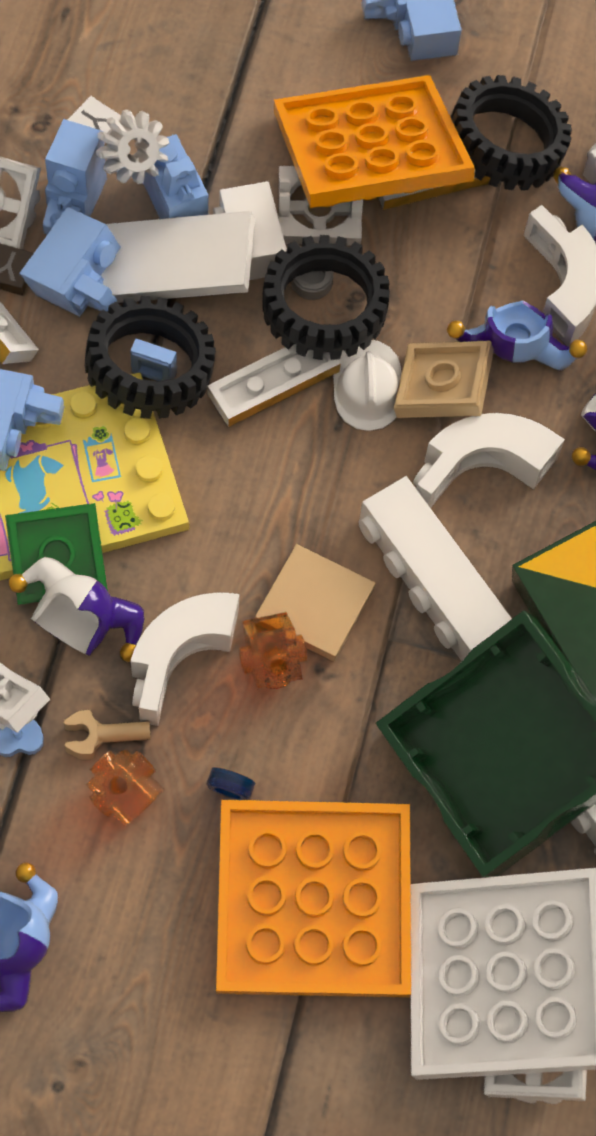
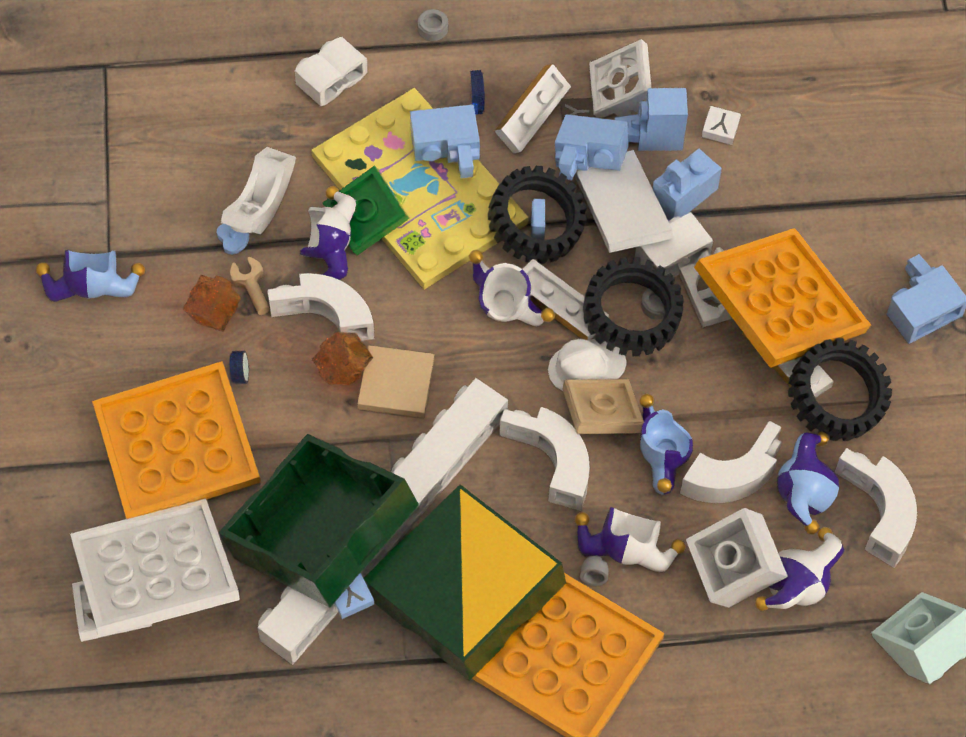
camera: 75 degrees right, 5 degrees down
(147, 144) = (670, 135): white gear -> none
(248, 430) = (506, 293): none -> white piece

